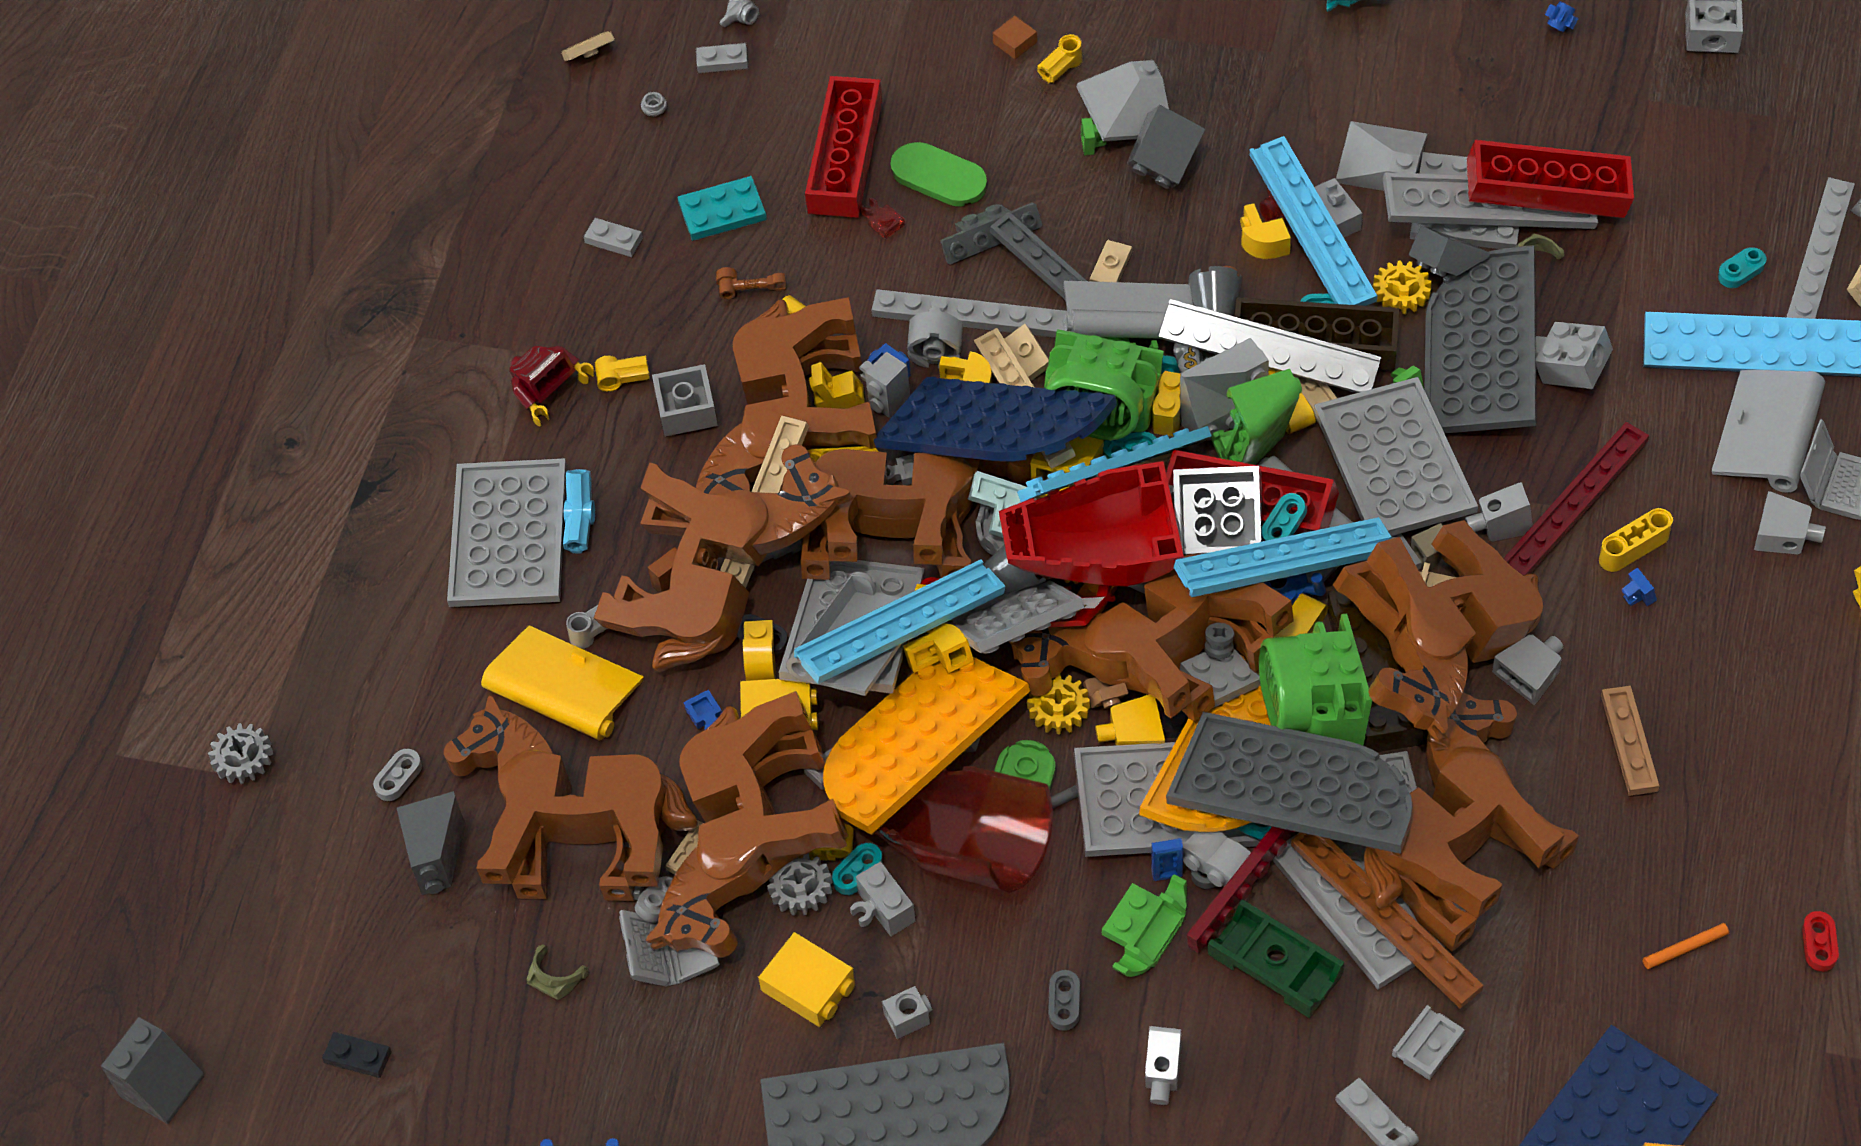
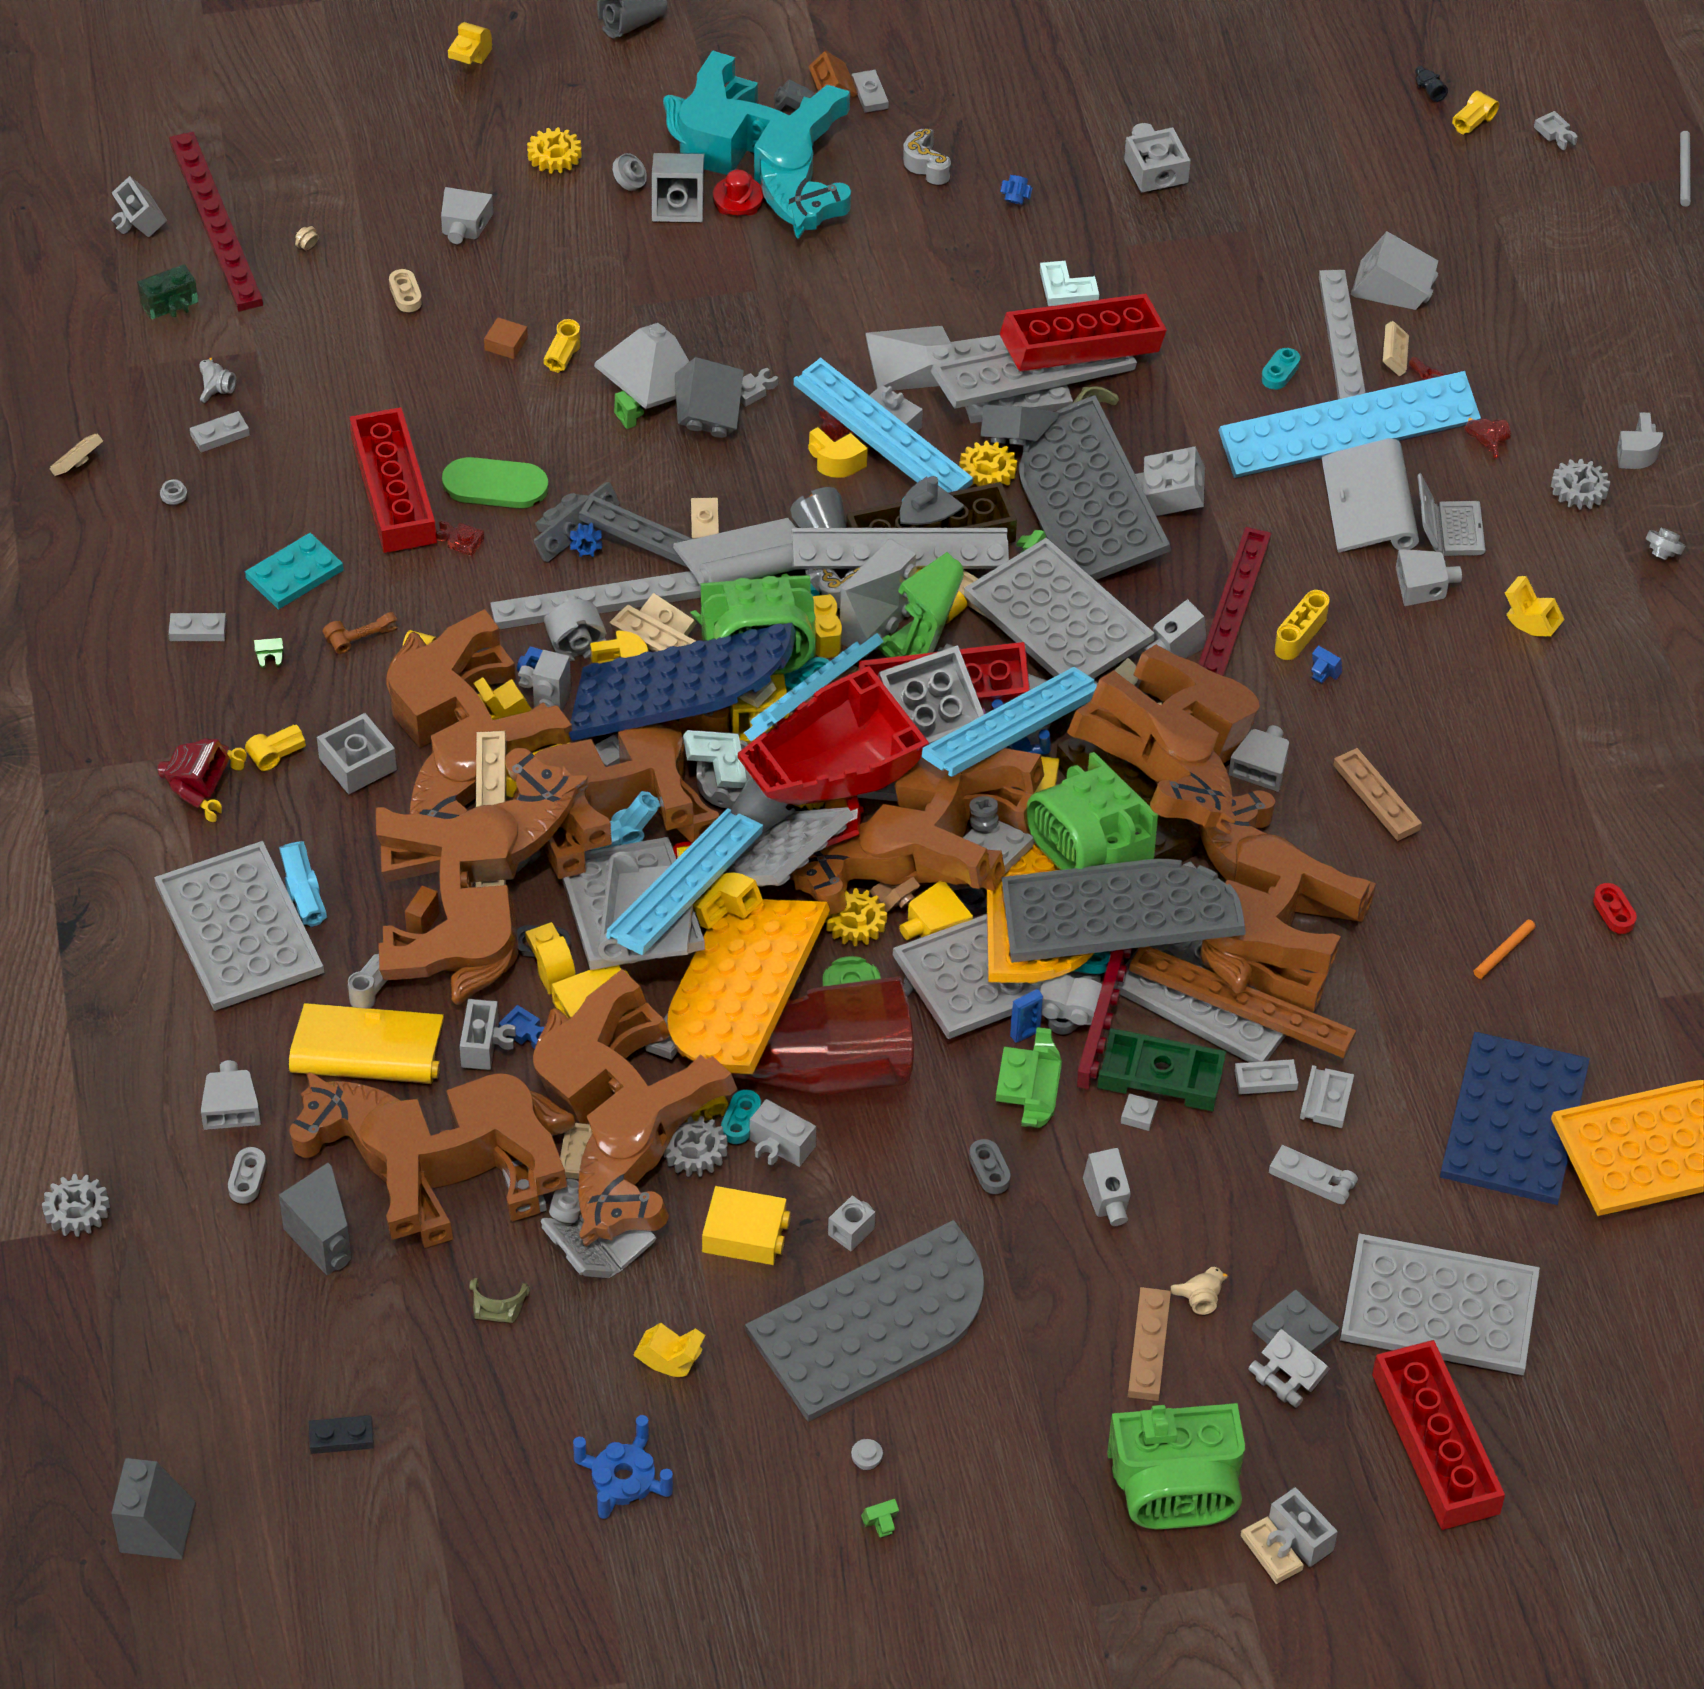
camera: 30 degrees left, 5 degrees down
(417, 696) = (229, 1099): none -> light grey torso
(659, 275) = (267, 648): none -> tile
(660, 708) = (482, 1033): none -> light grey brick
(676, 1080) = (667, 1351): none -> yellow brick
(888, 544) = (628, 823): none -> medium azure piece
(989, 253) = (584, 533): none -> blue gear
(1217, 147) = (755, 387): none -> light grey plate
(1236, 993) = (1139, 1112): none -> light grey plate
(1281, 518) = (994, 691): teal plate -> none
(1317, 310) = (927, 503): none -> dark grey shield
(1377, 1000) = (1266, 1076): none -> light grey plate
(1562, 130) = (1065, 290): none -> light aqua plate

